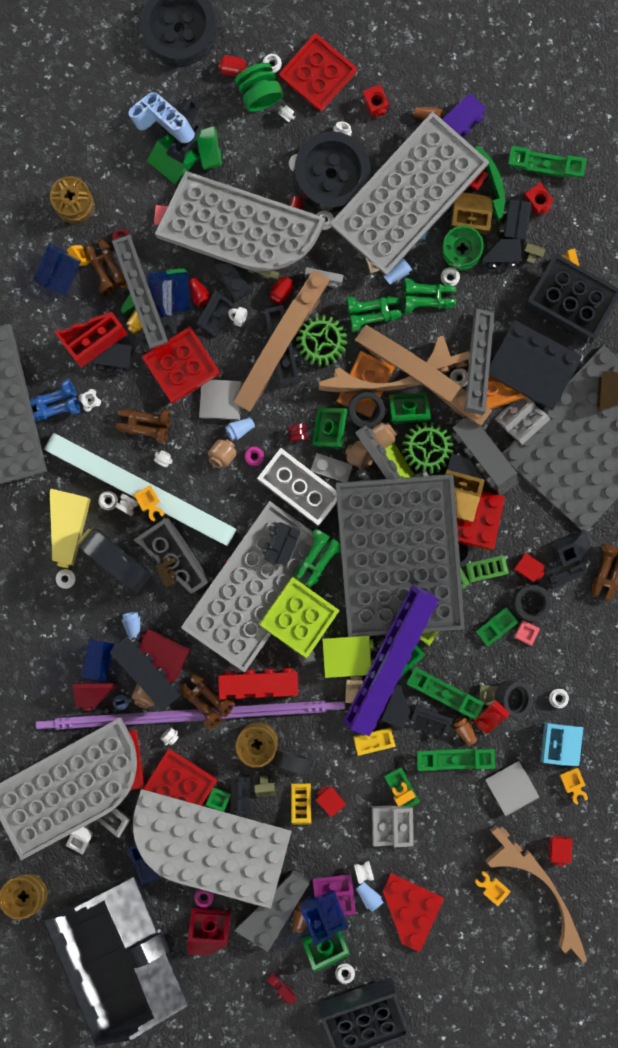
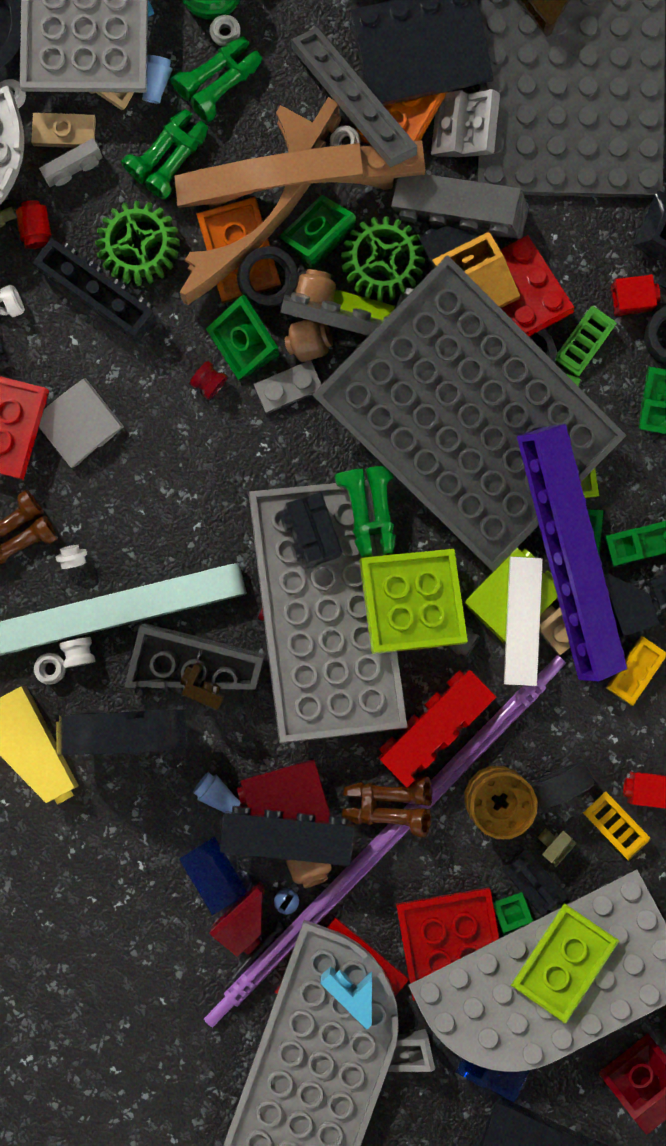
camera: 45 degrees left, 0 degrees up
(71, 581) = (90, 804): white plate -> none
(79, 840) = (387, 1115): white slope -> none
(110, 773) = (355, 1001): none -> medium azure slope
(148, 500) = (98, 623): light orange plate -> none
(169, 736) = (384, 888): white plate -> none
(203, 903) = (606, 1055): dark pink plate -> none
(219, 842) = (564, 963): none -> lime tile
(222, 453) = (138, 486): medium nougat head -> none
(239, 428) = (132, 438): light blue cone -> none
(249, 452) = (174, 448): dark pink plate -> none
(284, 333) = (86, 281): medium nougat slope -> none
(299, 487) = (270, 443): white brick -> none
(334, 257) = (62, 129): none -> tan plate
(340, 671) = (523, 621): none -> white tile

